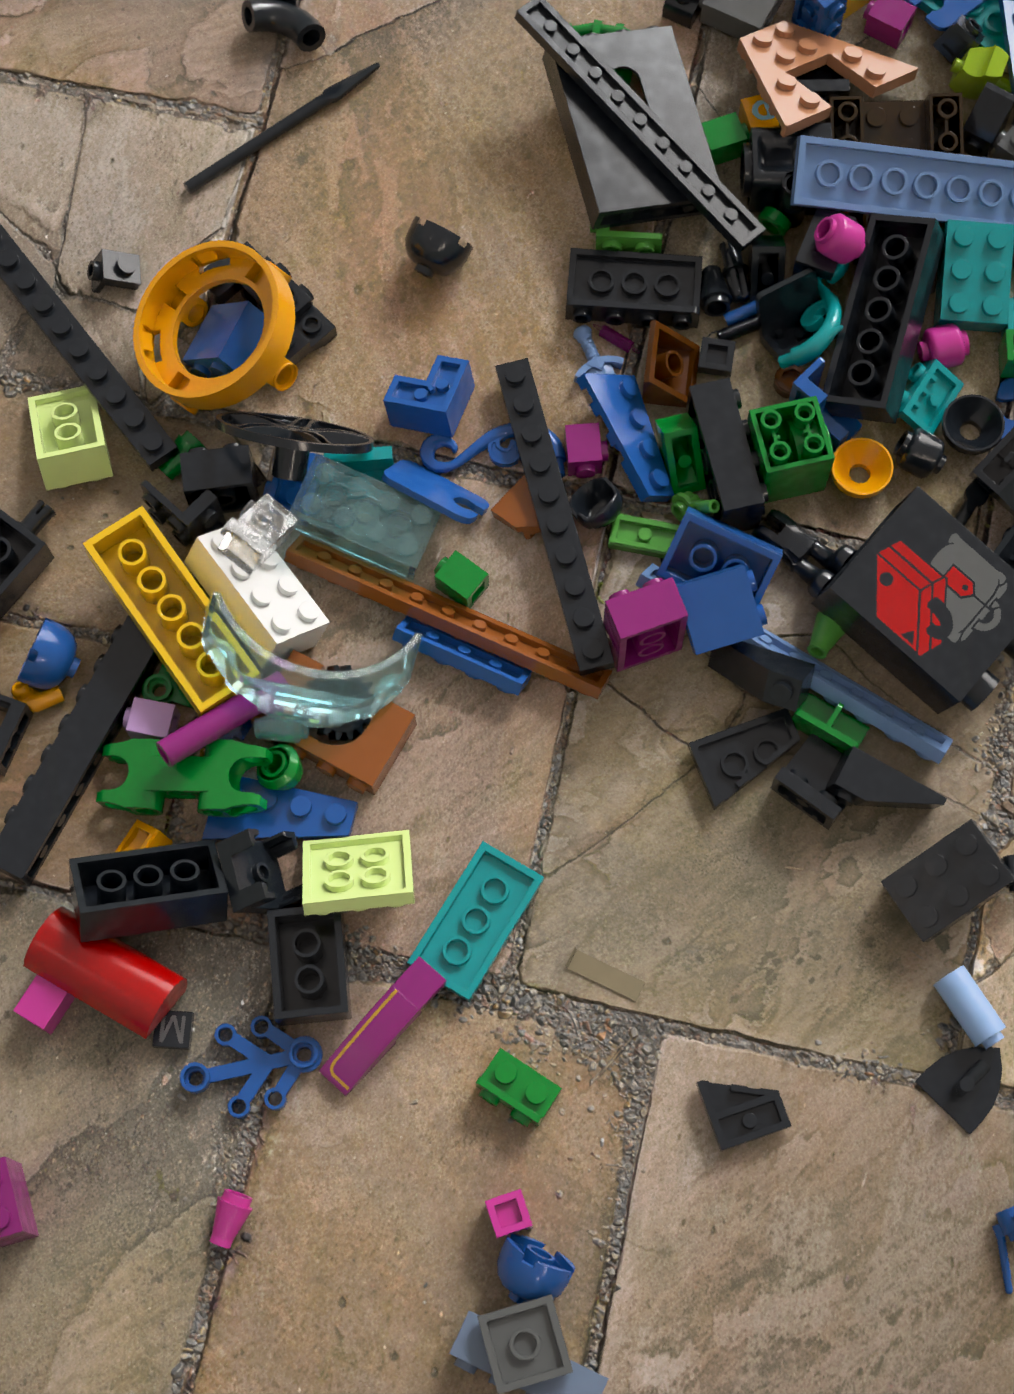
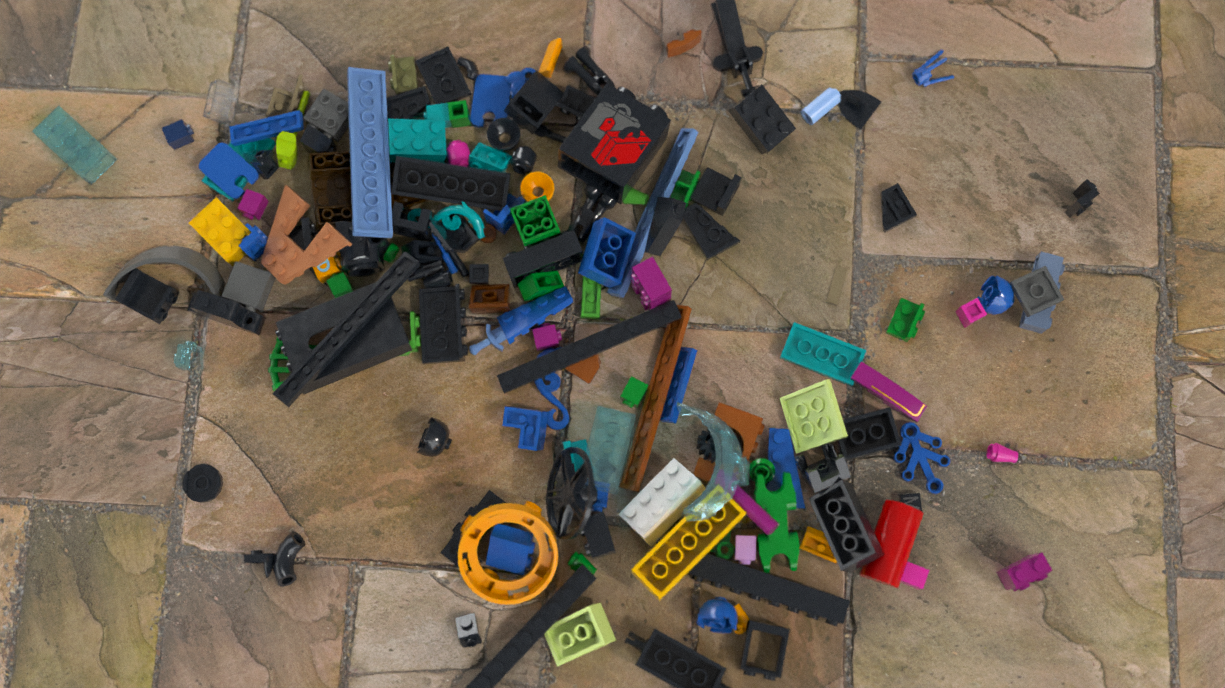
camera: 95 degrees left, 5 degrees up
(198, 519) = (625, 540): black bracket -> none
(257, 533) = (634, 502): clear brick -> none
(329, 95) = (332, 521): black piece -> none
(435, 491) = (585, 414): blue piece -> none
(596, 503) = (578, 325): black hair -> none
(616, 338) = (471, 335): magenta piece -> none
(682, 500) = (572, 277): bright green plate -> none
(721, 609) = (638, 244): blue brick -> none
(839, 238) = (411, 207): dark pink head -> none
(869, 782) = (716, 162): black slope -> none

